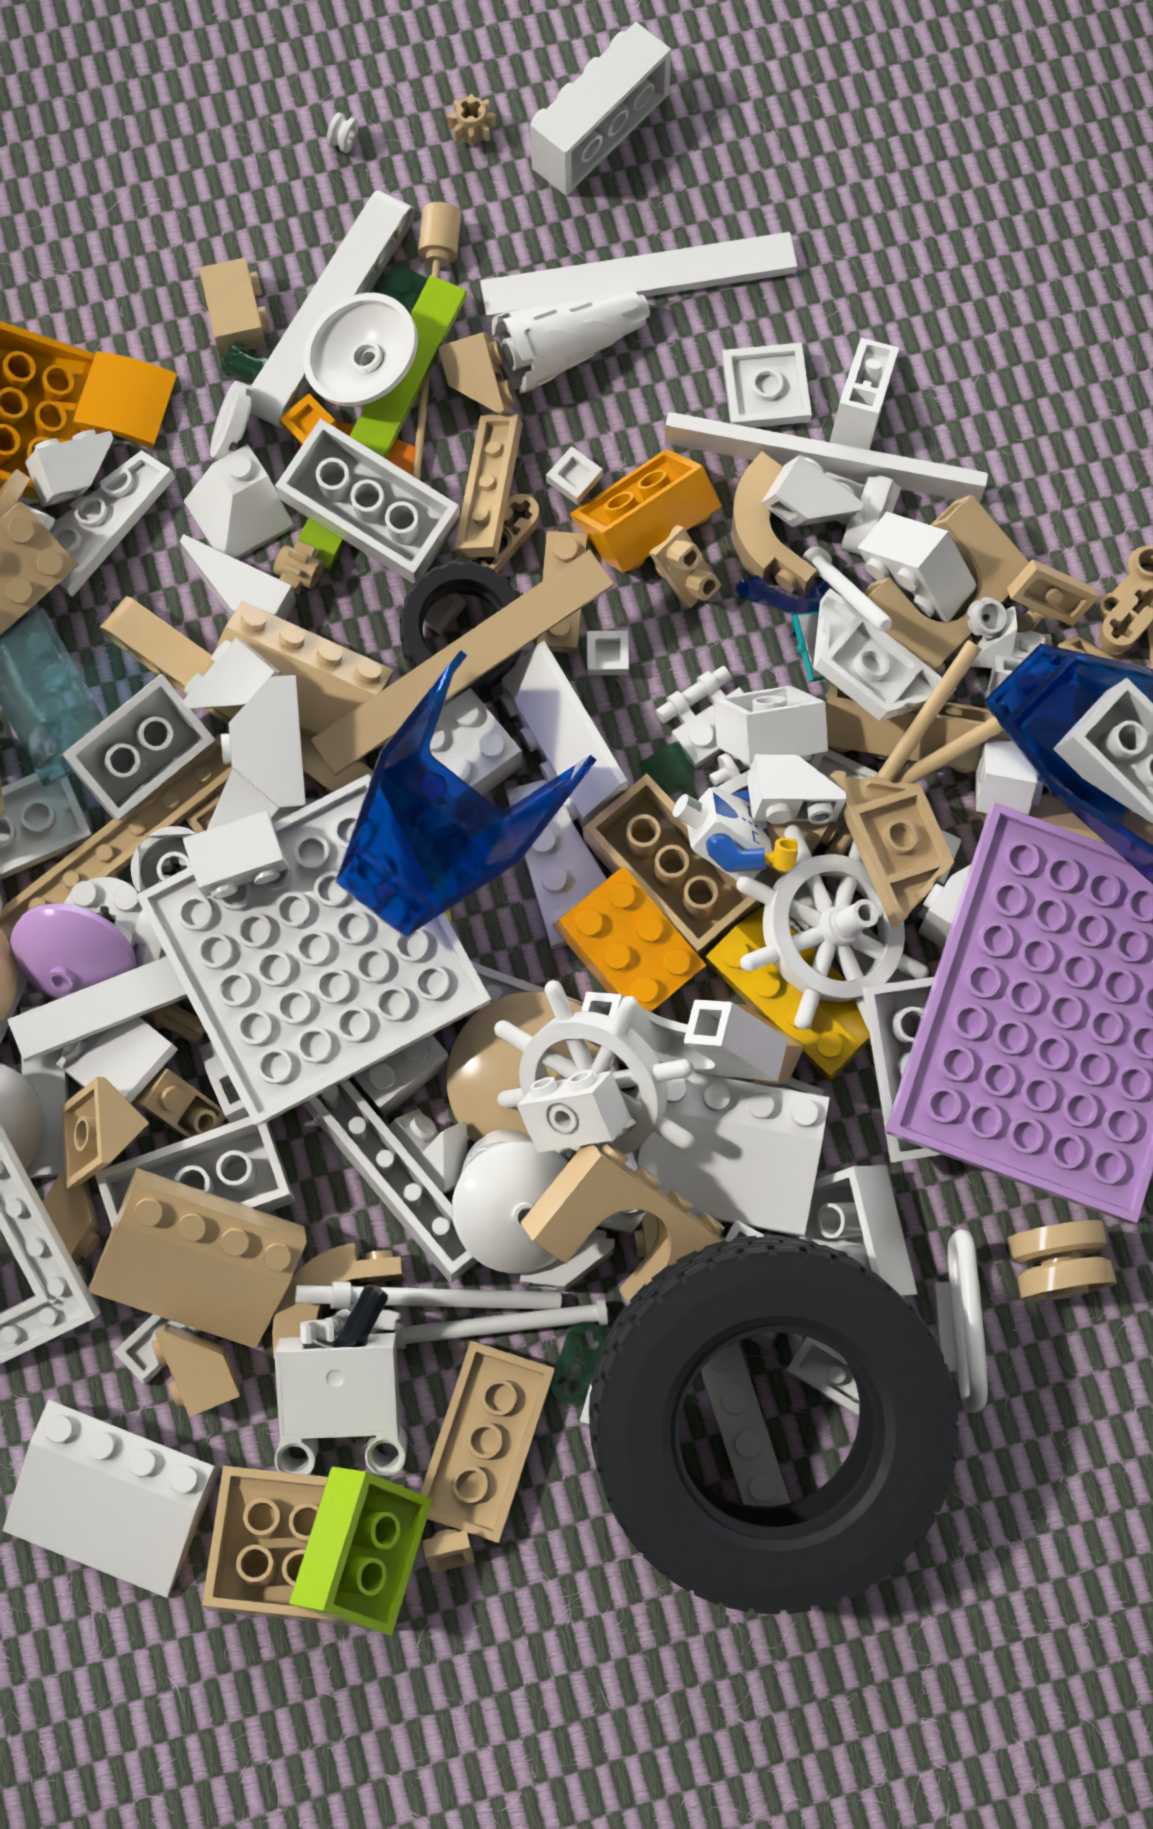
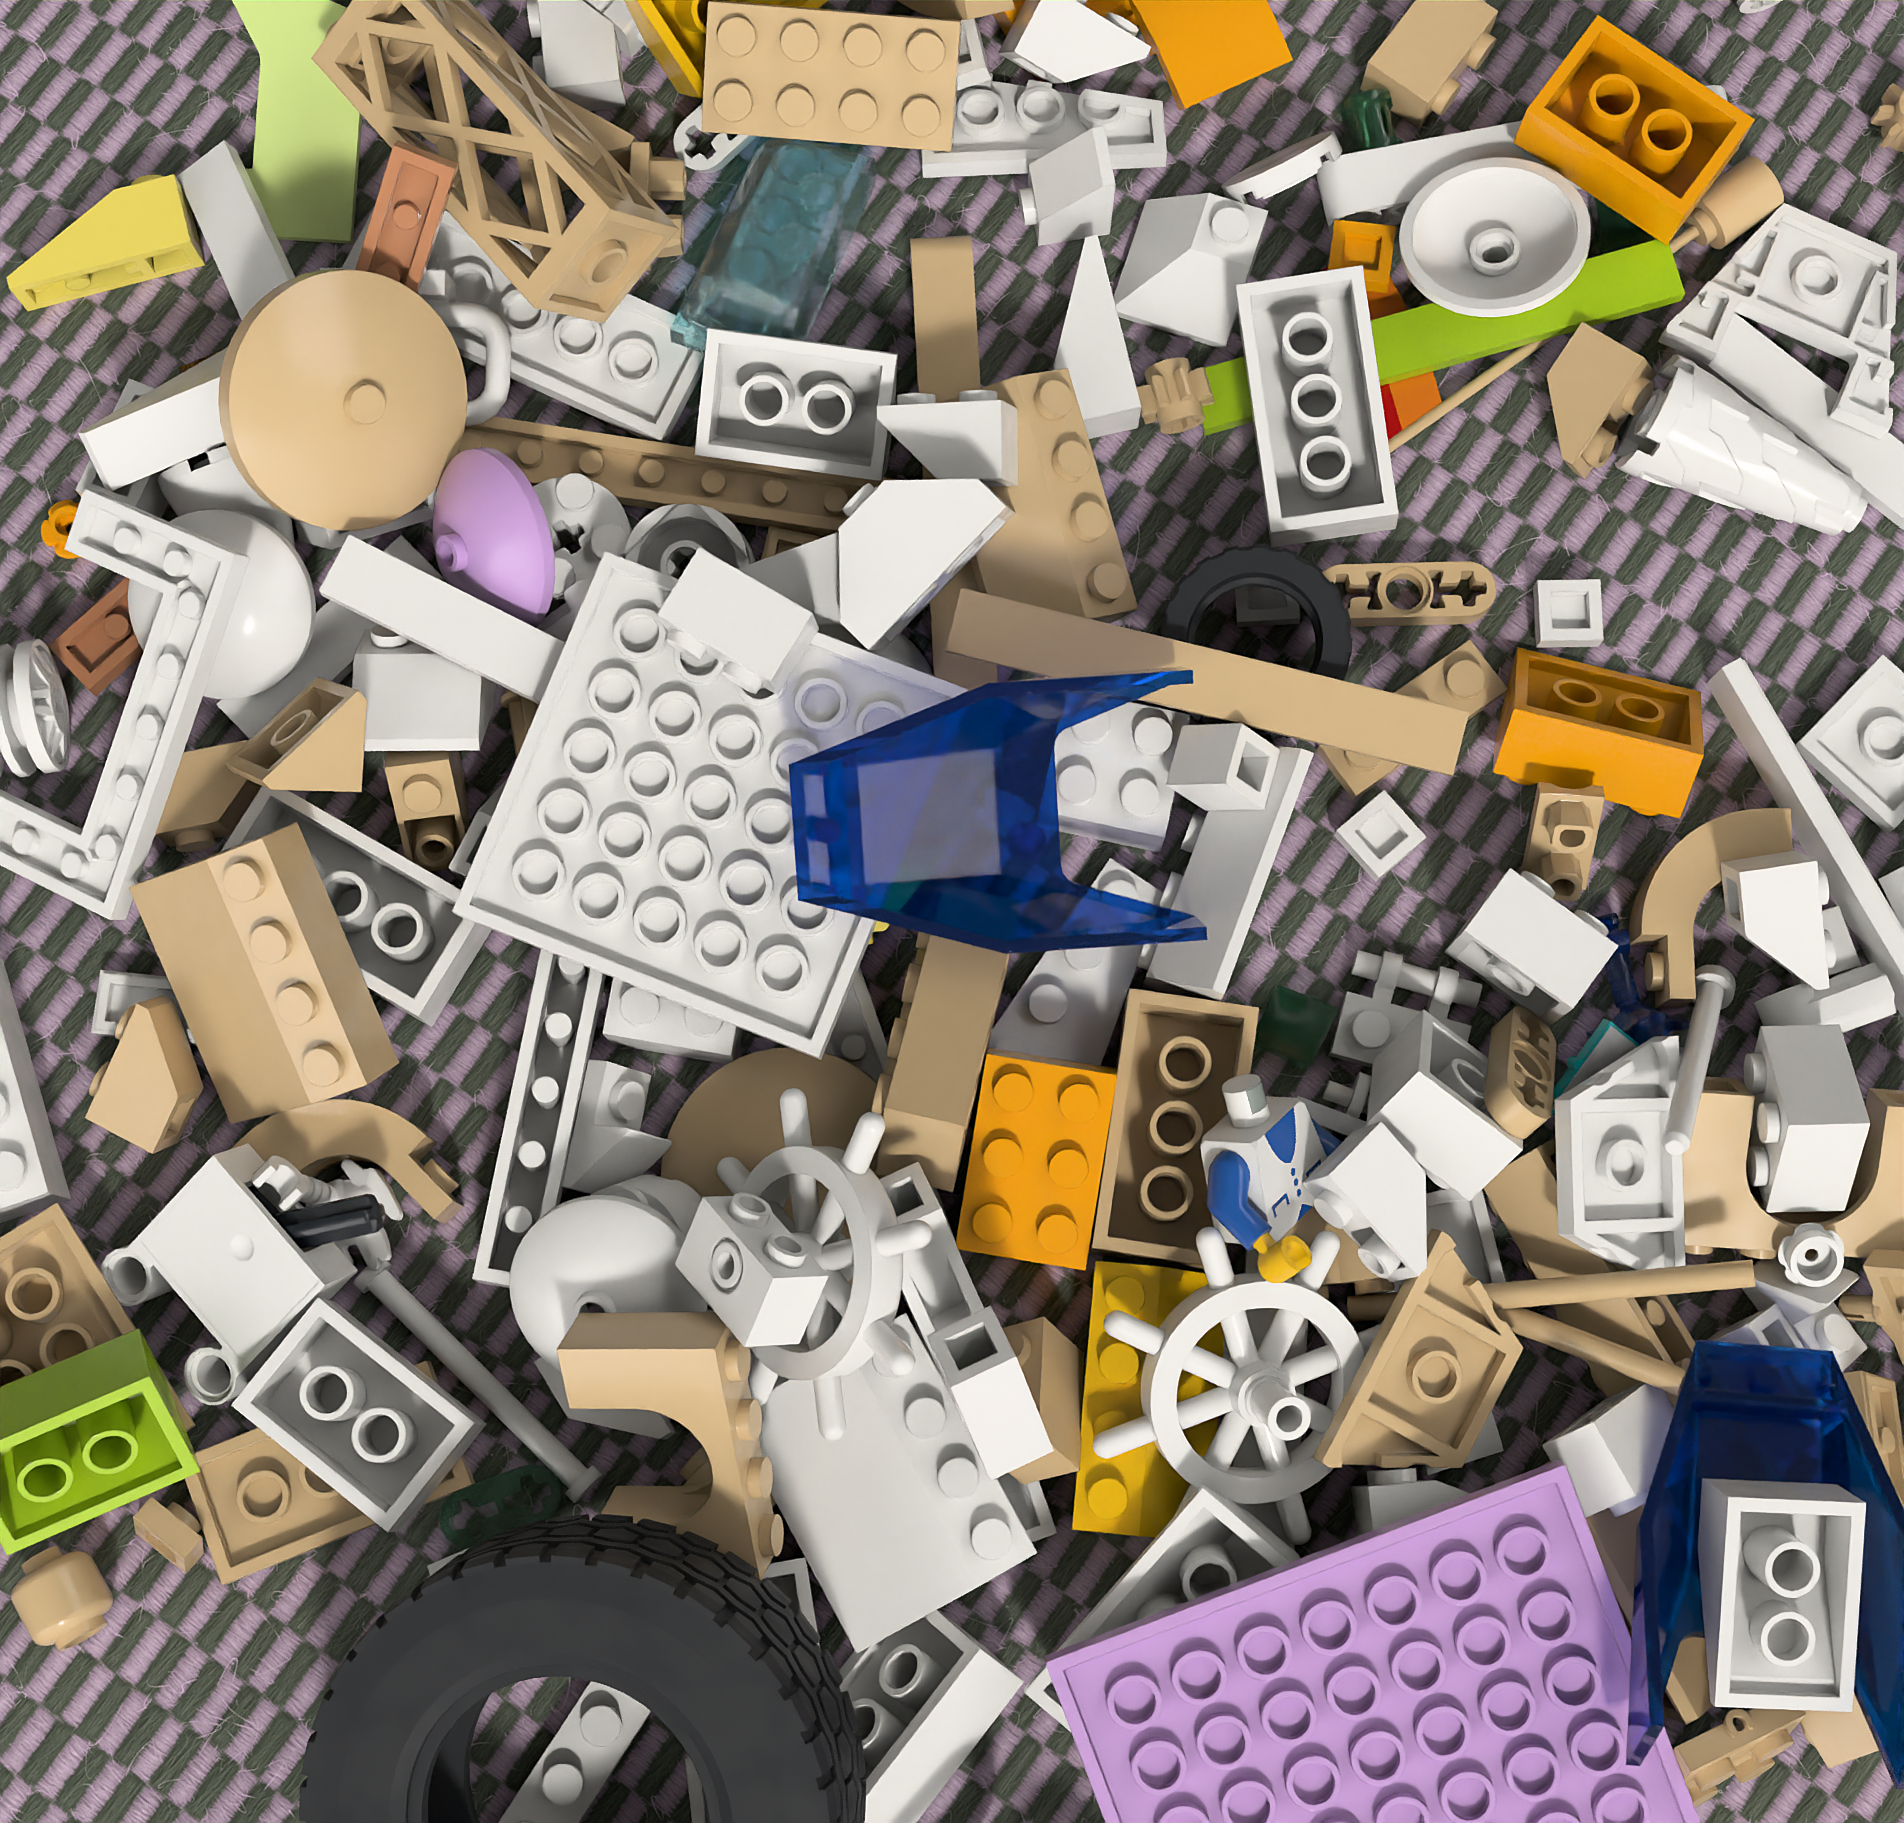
camera: 50 degrees right, 5 degrees up
(148, 528) = (1070, 190): none -> white slope
(342, 1294) = (352, 1174): white bar -> none
(366, 243) = (1632, 130): none -> light orange brick
(434, 1635) = (62, 1598): none -> tan head
(472, 1389) = (359, 1415): none -> white brick
(488, 486) = (1463, 526): tan plate -> none
(512, 690) = (1223, 767): none -> white brick
(518, 231) = (1815, 288): none -> white wing
(535, 937) = (937, 1057): none -> tan brick
(726, 624) = (1532, 946): none -> white brick
(784, 677) = (1520, 1072): none -> tan beam

